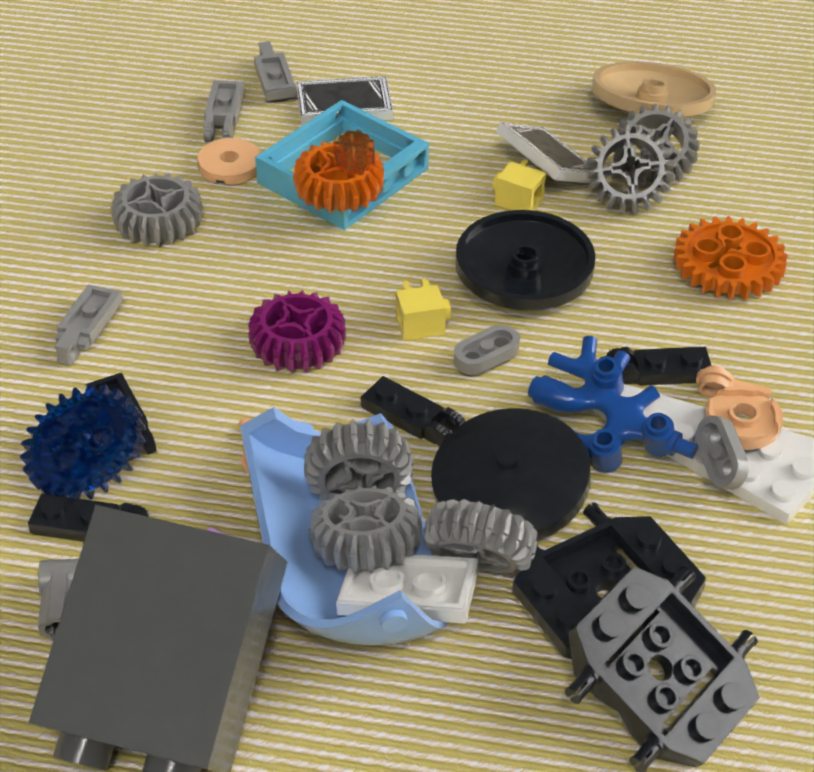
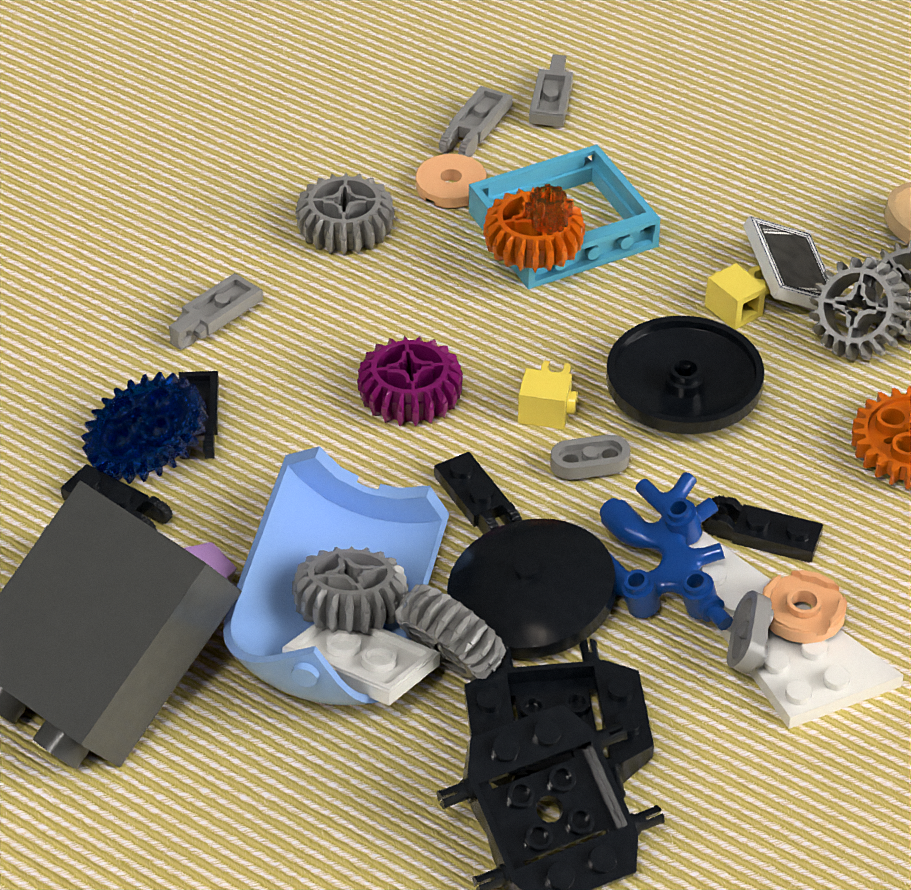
camera: 25 degrees right, 0 degrees up
(357, 456) = (377, 519): light grey gear -> none
(365, 93) = (631, 145): tile -> none
(716, 378) = (811, 559): light nougat plate -> none

